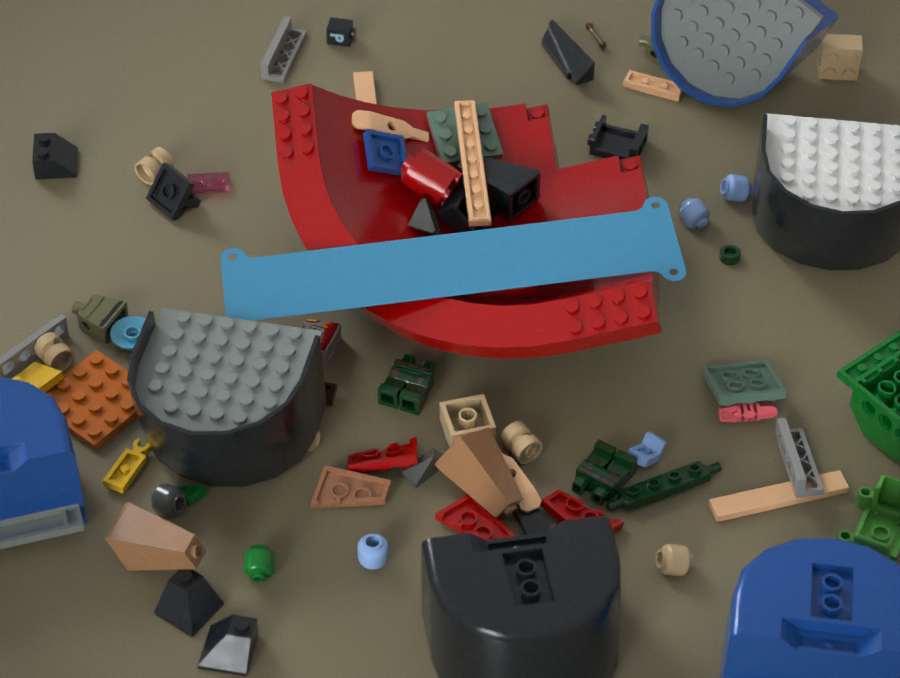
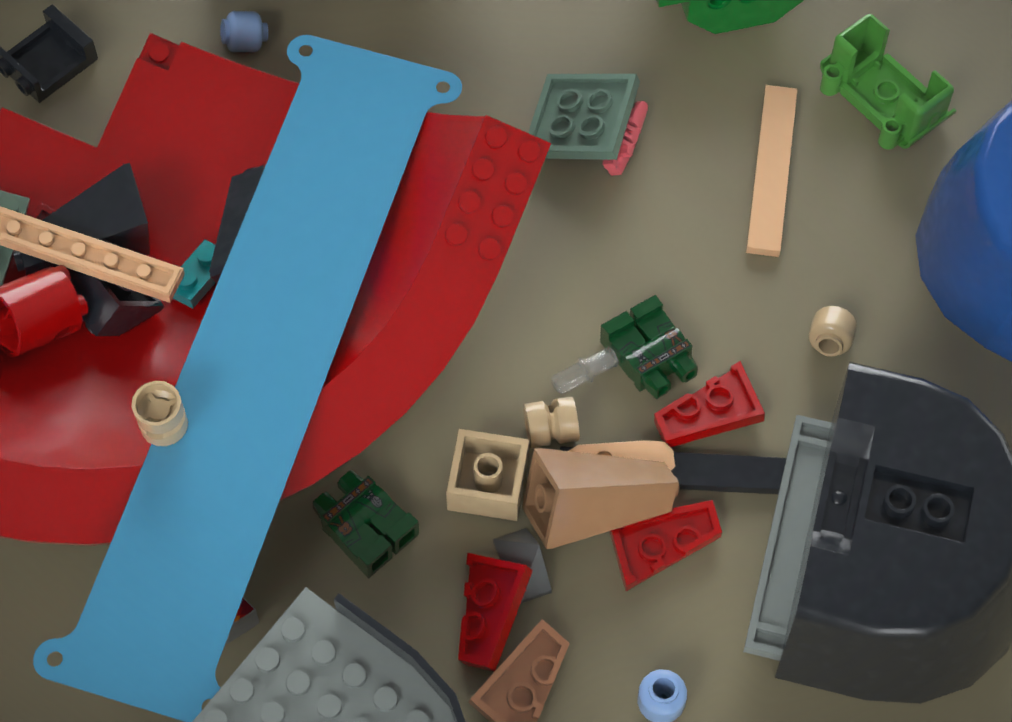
camera: 65 degrees left, 15 degrees up
(385, 231) = (159, 413): none -> tan wheel
(425, 219) = (99, 360): dark grey slope -> none
(567, 448) = (585, 370): none -> clear axle
(649, 450) = (635, 277): light blue bracket -> none
(663, 485) = (698, 288): dark green plate -> none
(729, 255) = (335, 28): dark green tile -> none
(794, 463) = (732, 121): light grey fence -> none

